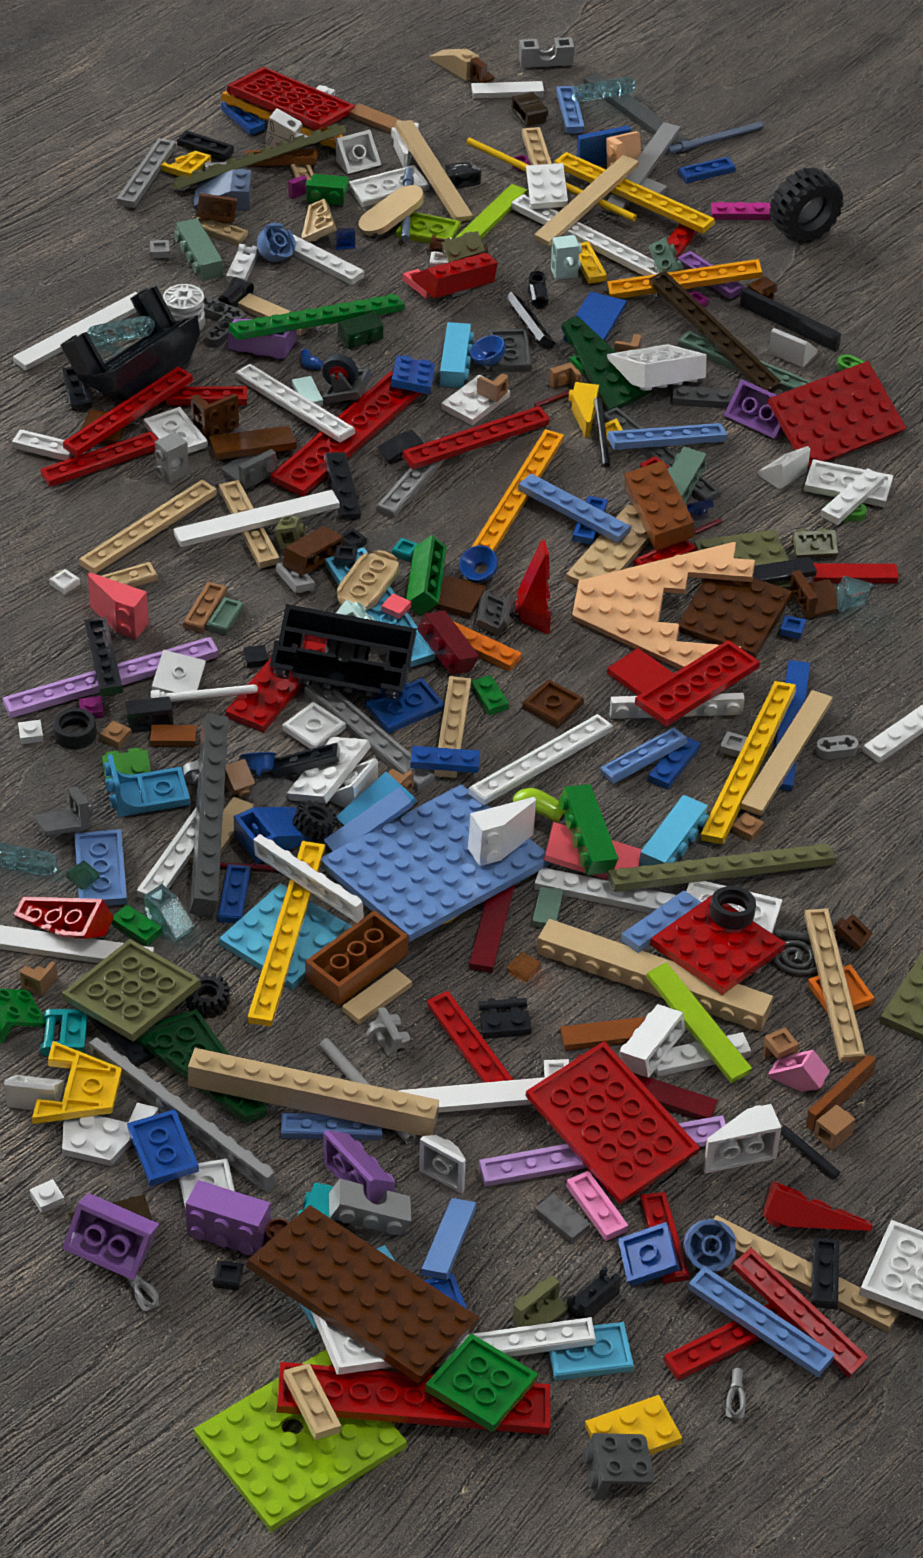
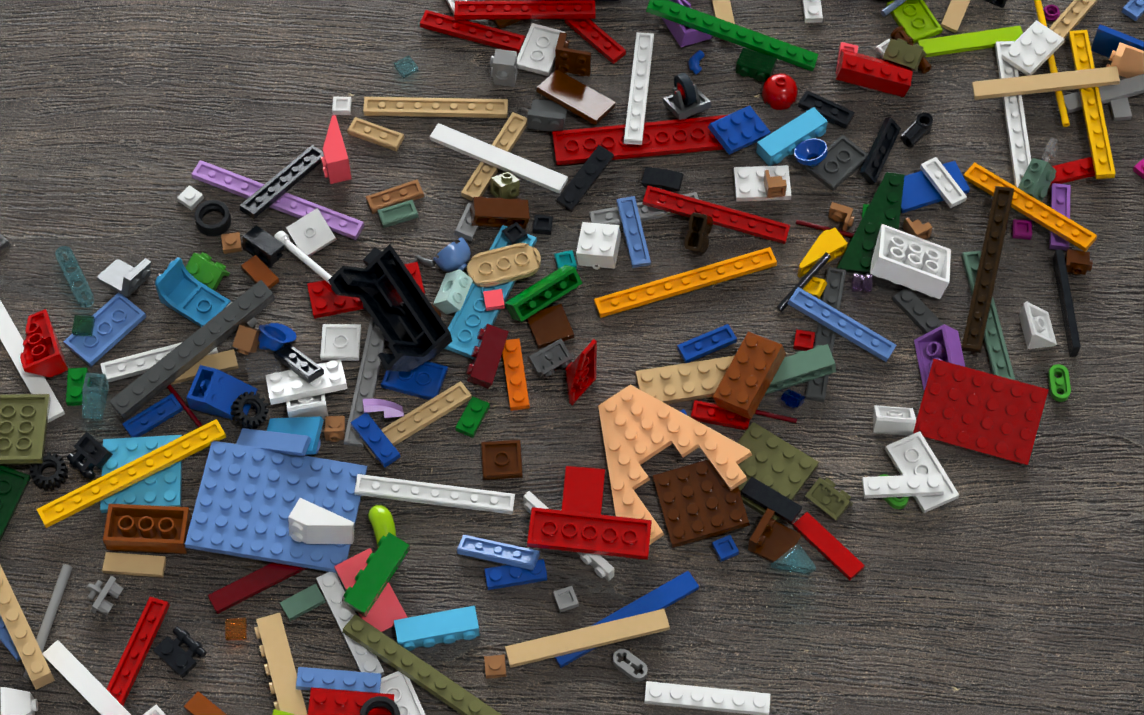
camera: 50 degrees right, 15 degrees up
(78, 520) = (406, 66): none -> clear light blue tile
(93, 705) = (237, 214): magenta plate -> none
(227, 947) = (93, 451): none -> black plate
(306, 387) = (662, 86): light aqua tile -> none
(308, 878) = (177, 455): white plate -> none
(322, 597) = (454, 256): none -> medium blue cylinder
(402, 334) = (779, 91): none -> red cylinder
(417, 738) = (389, 408): none -> lavender slope
(420, 516) = (598, 245): none -> white brick
(430, 492) = (633, 232): none -> medium blue tile
(438, 325) = (829, 110): none -> black plate
(476, 556) = (581, 310): blue piece -> none
(482, 449) = (699, 229): none -> dark brown brick
(565, 257) = (966, 119): light aqua brick -> none
(574, 508) = (702, 326): medium blue plate -> none
(591, 265) = (985, 135): yellow plate -> none
(606, 305) = (943, 182): none -> white plate
(638, 406) = (862, 282): none -> clear purple wheel
(644, 240) = (1050, 150): none -> clear plate
(748, 763) = (554, 620): yellow plate -> none

